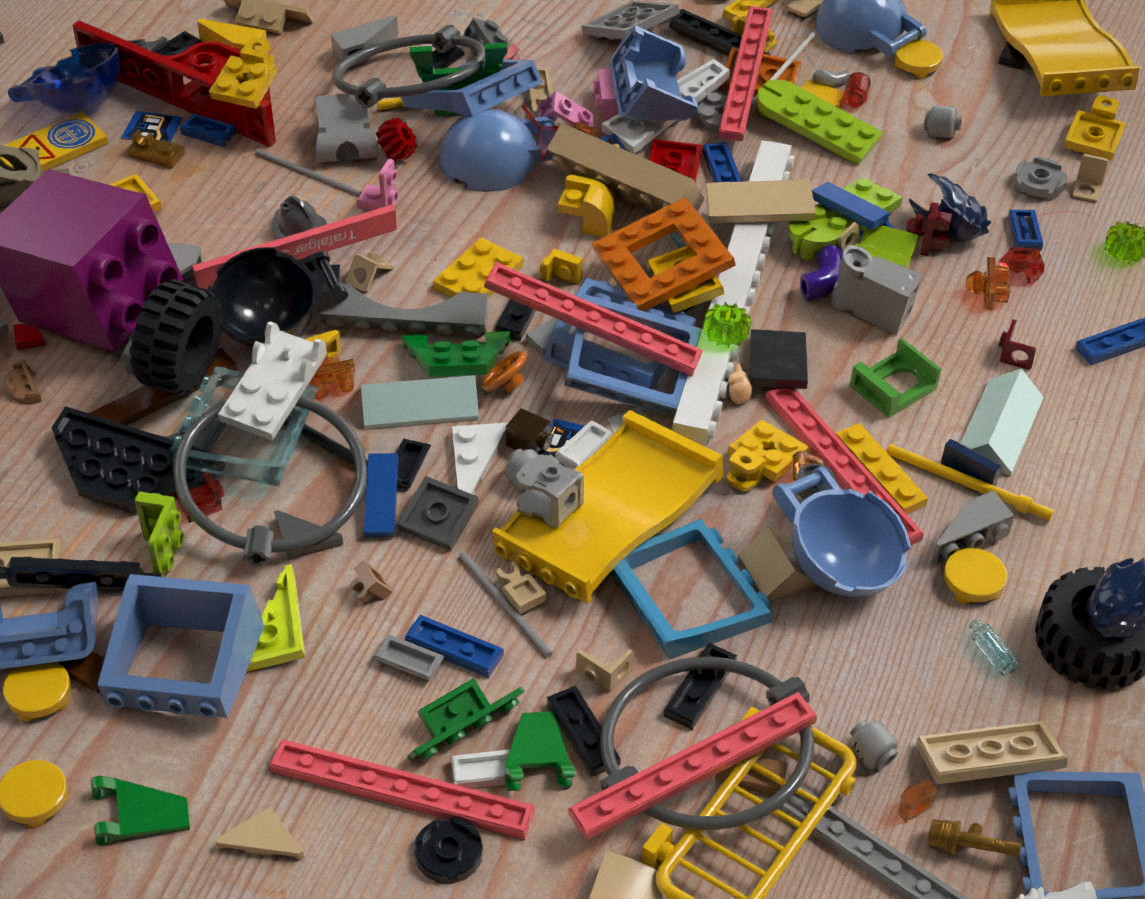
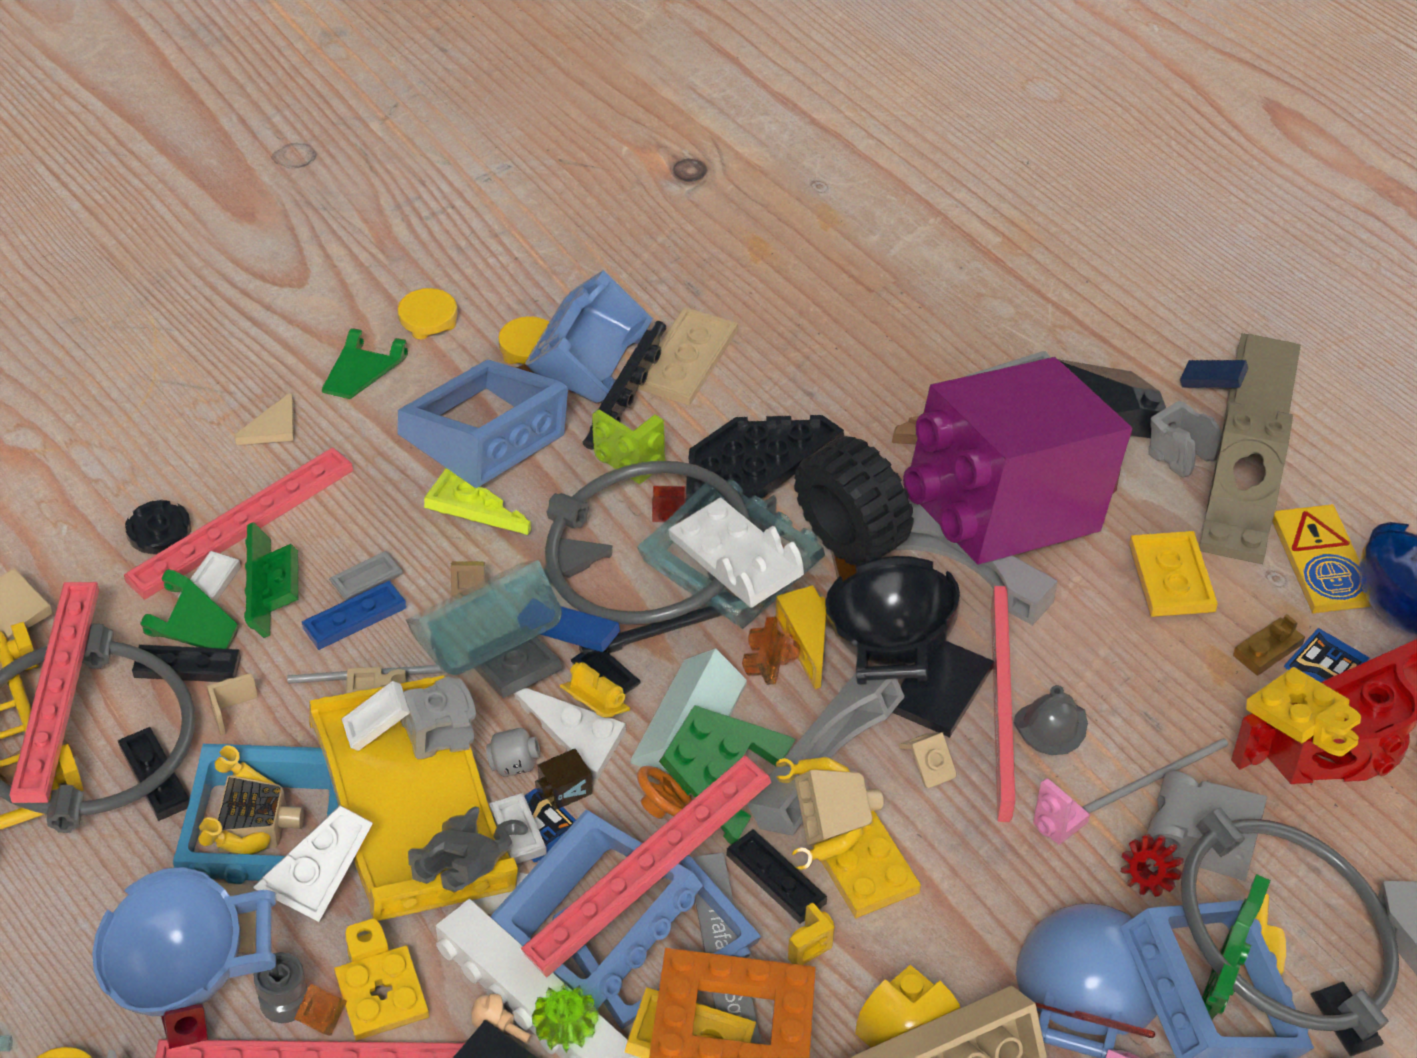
camera: 120 degrees right, 0 degrees up
(412, 537) = (487, 618): none -> clear light blue windscreen
(439, 451) = (603, 698): none -> yellow hinge
(464, 269) = (831, 805): none -> tan torso
(580, 518) = (375, 715): none -> white tile
(650, 427) = (462, 851): none -> dark grey animal
(698, 590) = (250, 810): none -> torso
(712, 510) = (317, 864): none -> white wing

